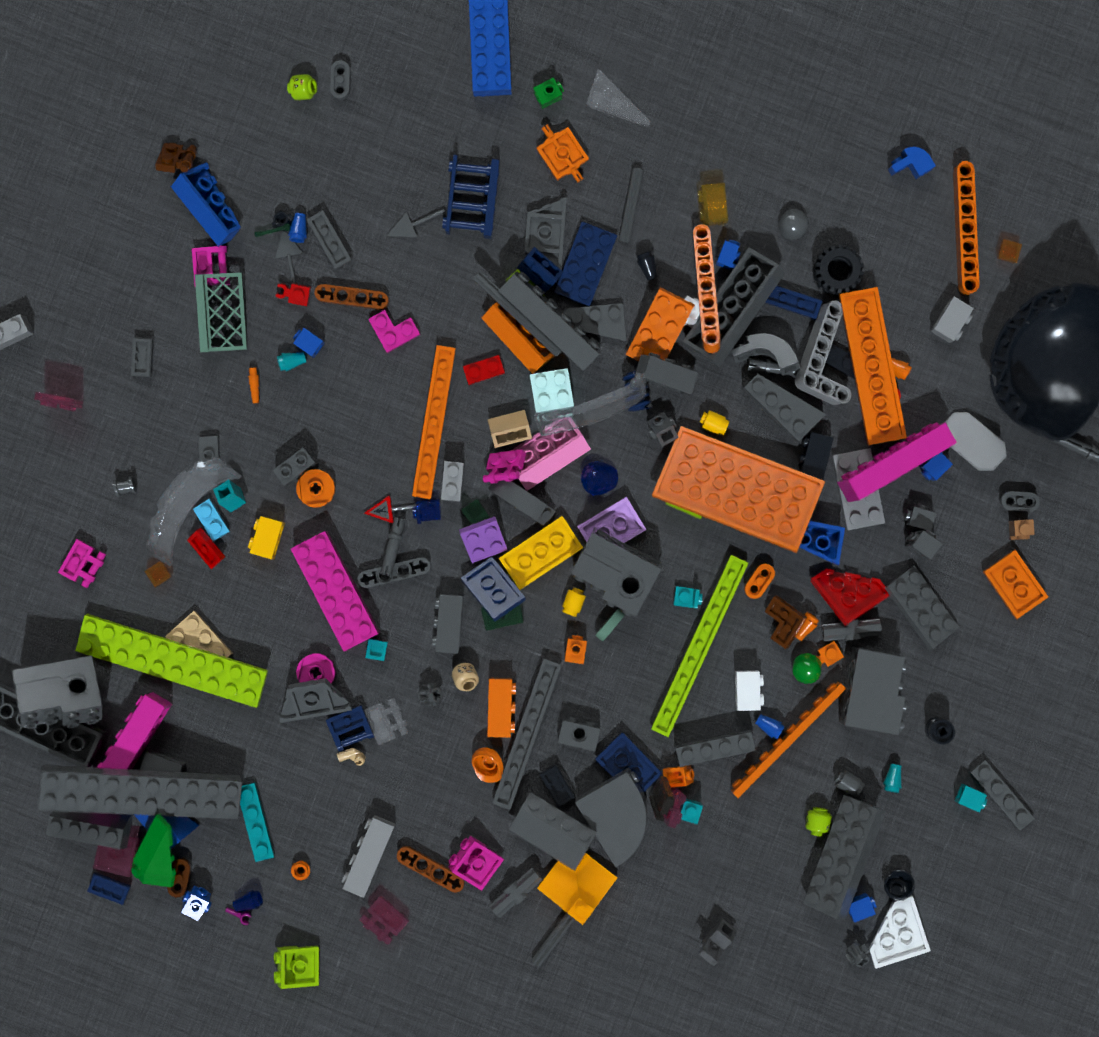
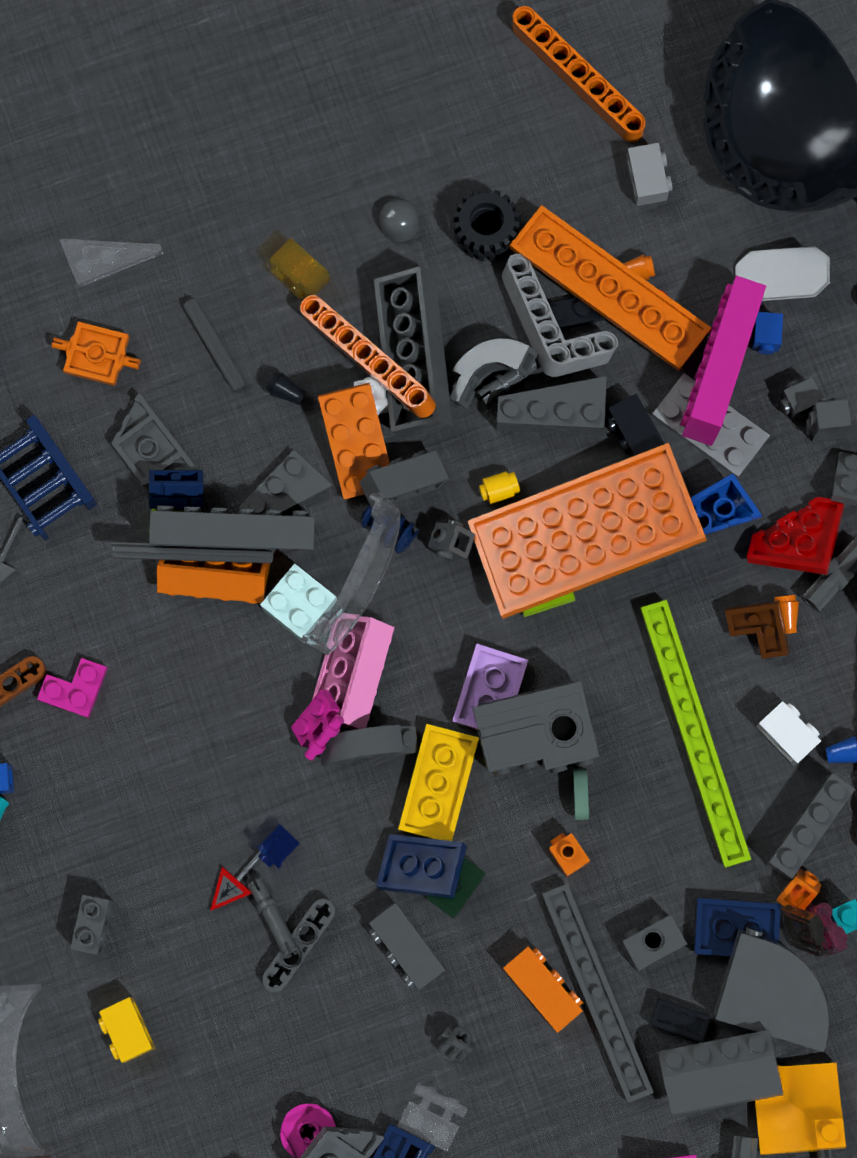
camera: 30 degrees left, 10 degrees down
(206, 548) = (69, 1101): red plate -> none
(211, 520) = (49, 1065): medium azure plate -> none
(229, 495) = (46, 1019): teal brick -> none
(307, 481) = (119, 929): orange plate -> none
(335, 590) = (252, 1021): dark pink brick -> none
(376, 649) = (353, 1047): teal plate -> none
(433, 422) = (202, 747): orange plate -> none
(452, 481) = (277, 790): light grey brick -> none
(465, 677) = (475, 989): tan head -> none
(475, 512) = (332, 804): clear green panel -> none
(483, 370) = (207, 645): red plate -> none
(483, 539) = (364, 823): medium lavender plate -> none
(487, 765) = (585, 1064): orange hat -> none
(509, 428) = (289, 681): tan brick -> none
(548, 92) = (27, 306): green brick -> none
(573, 602) = (520, 804): yellow brick -> none
(585, 264) = (219, 444): dark blue plate -> none
(599, 478) = (430, 651): clear blue hat -> none
(687, 597) = (636, 693): teal bracket -> none
(728, 255) = (360, 307): blue brick -> none
(759, 581) = (695, 609): orange plate -> none
(794, 302) = (471, 295): dark blue plate -> none
(806, 668) = (829, 655): green hair -> none
(829, 654) = (838, 622): orange plate -> none
(916, 159) = (465, 51): blue brick -> none
(1009, 251) = (642, 59): clear orange plate -> none

